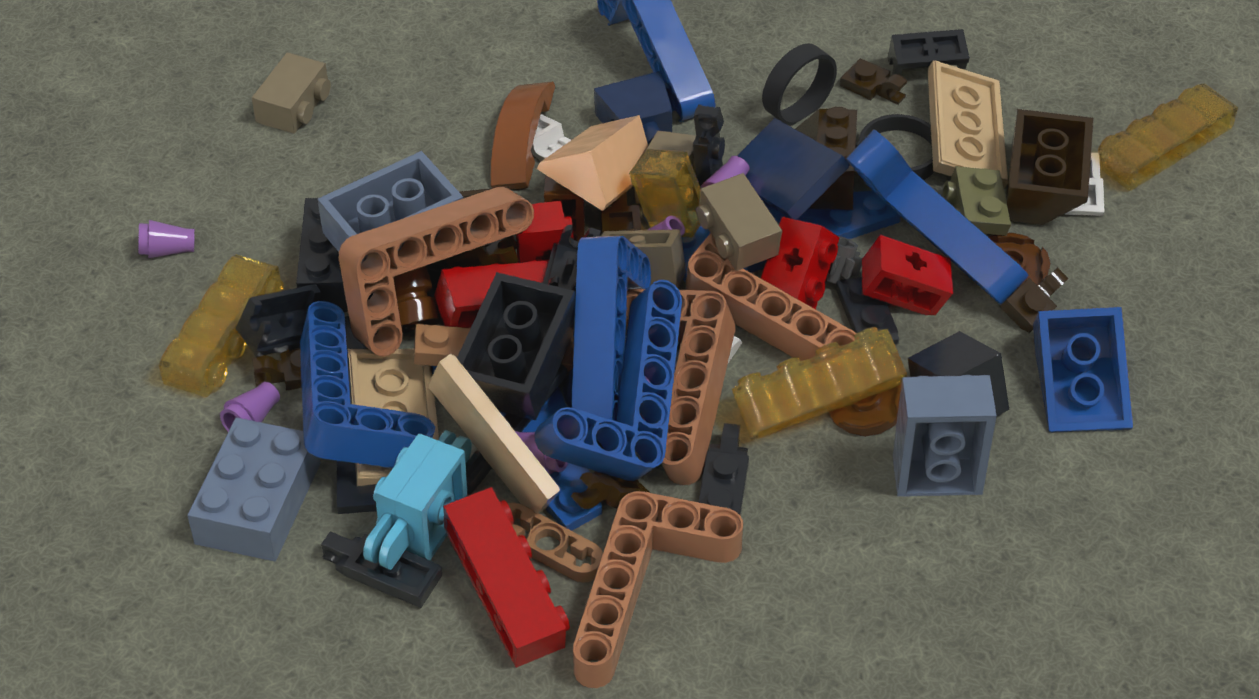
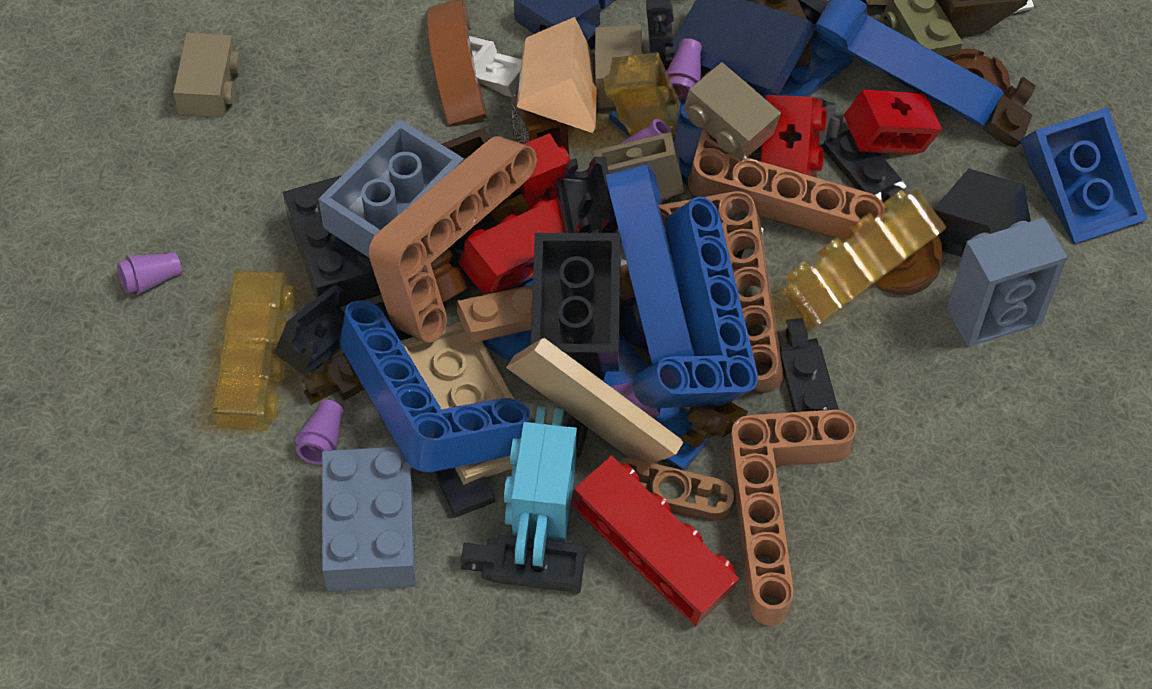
camera: 20 degrees left, 10 degrees up
(620, 216) = (604, 136): dark brown plate -> none

